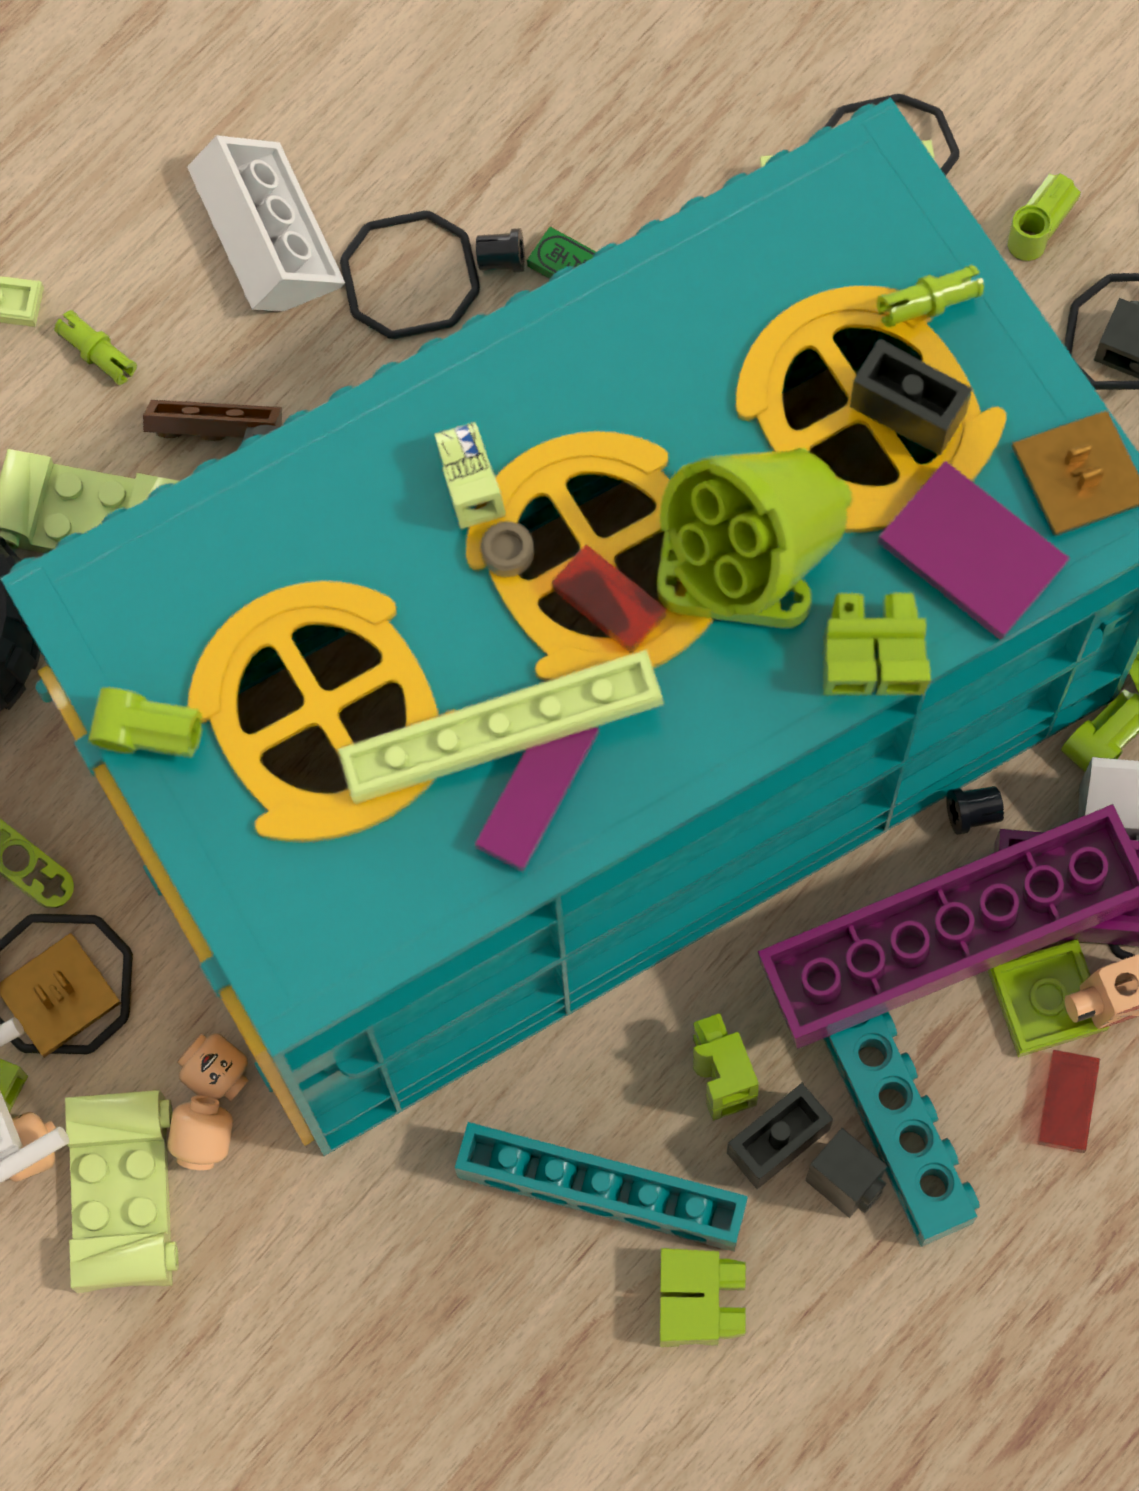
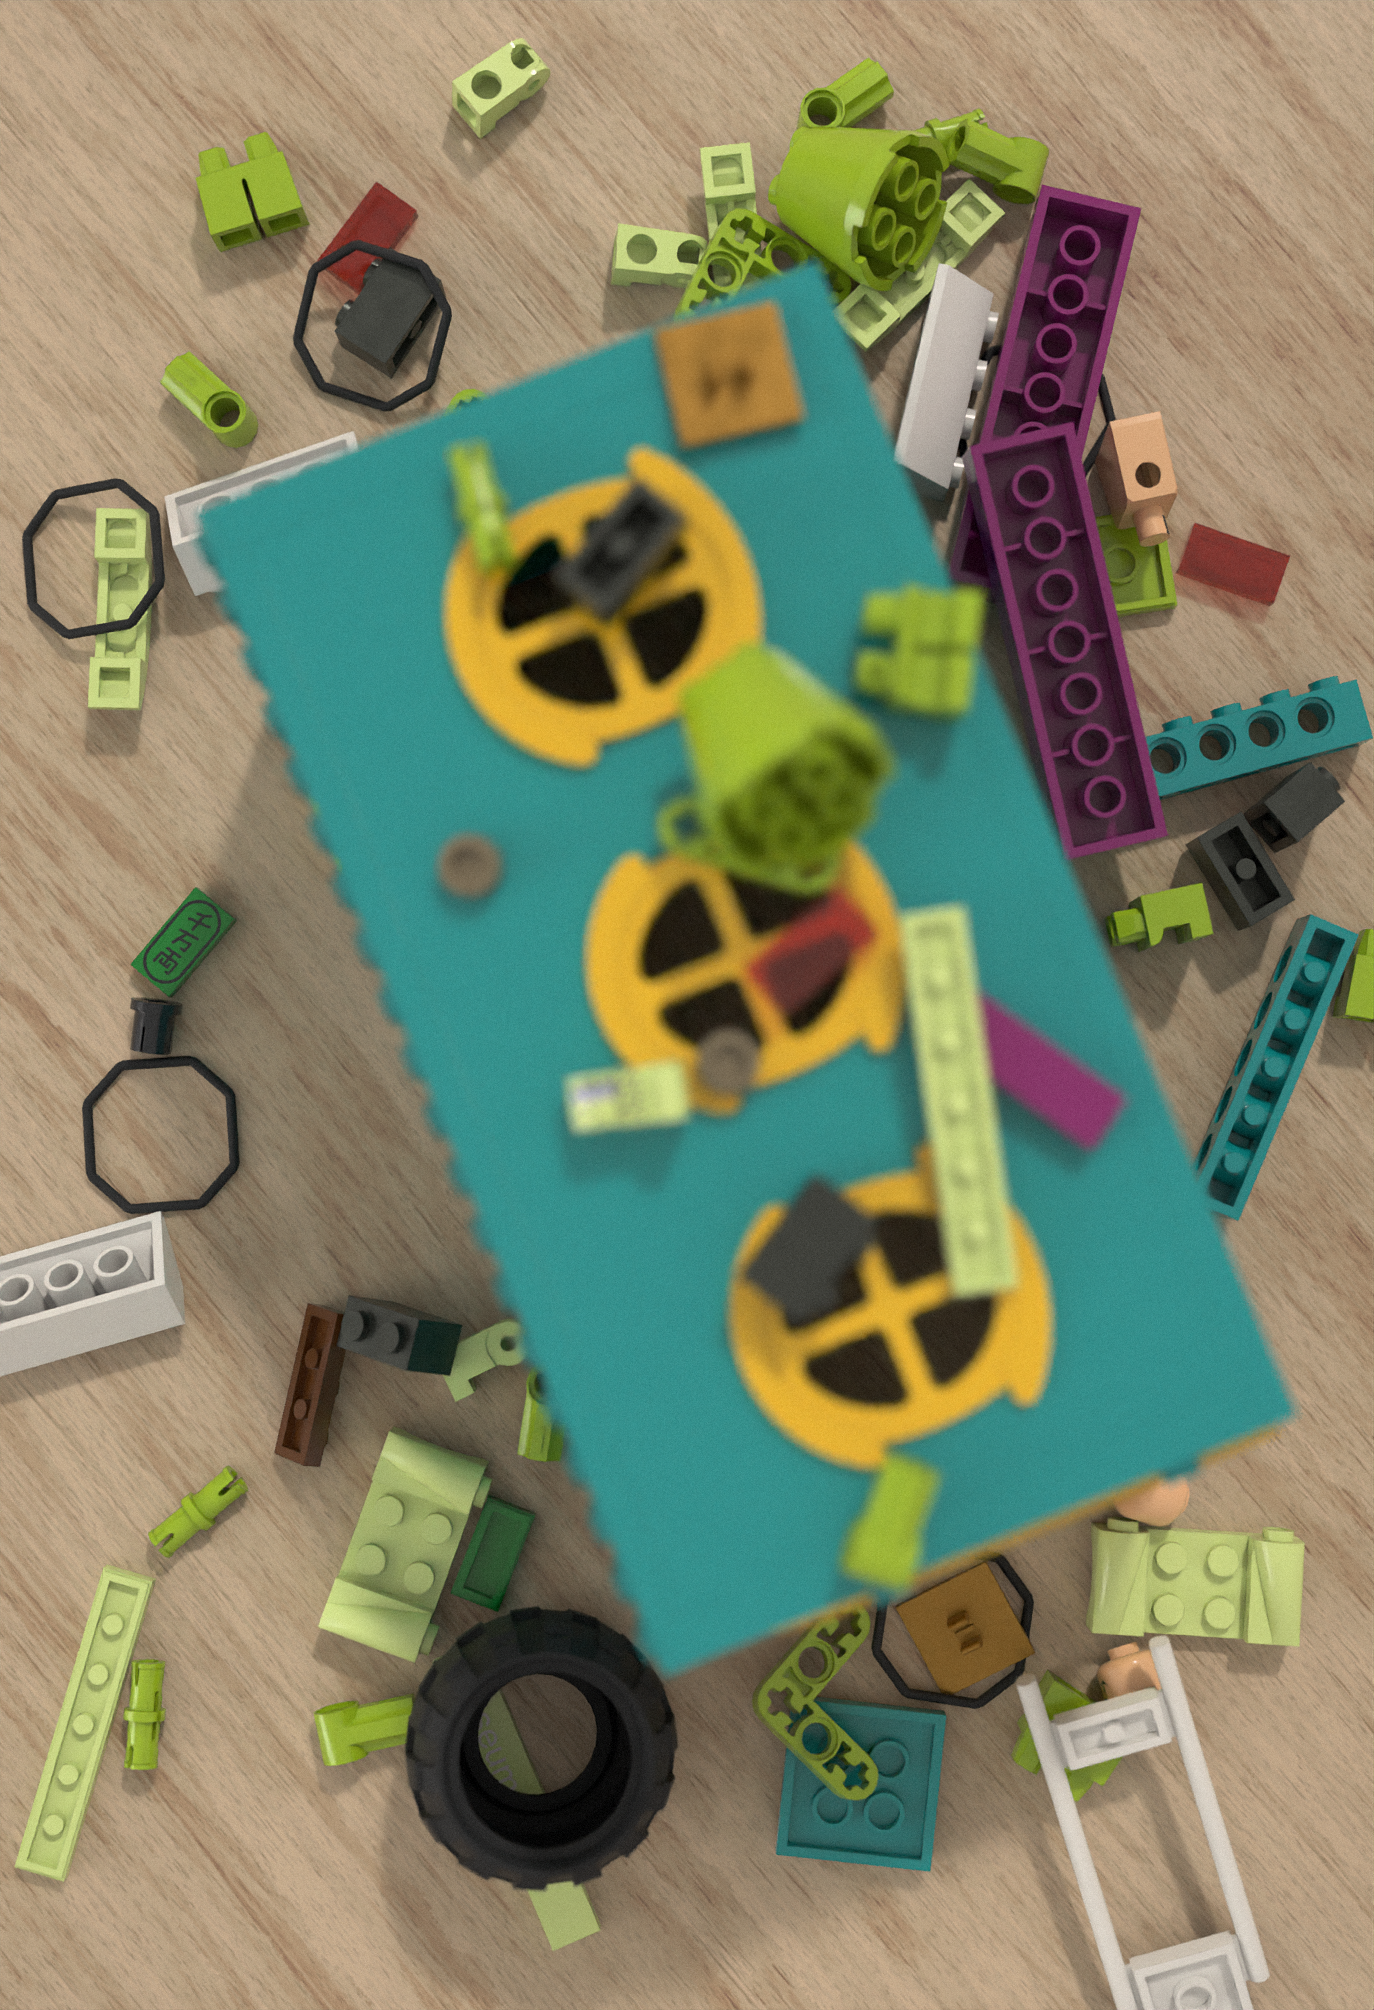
camera: 80 degrees left, 15 degrees up
(362, 625) = (809, 1249): none -> pearl dark grey brick
(639, 334) = (470, 866): none -> dark tan tile
(973, 550) = (810, 517): magenta tile -> none

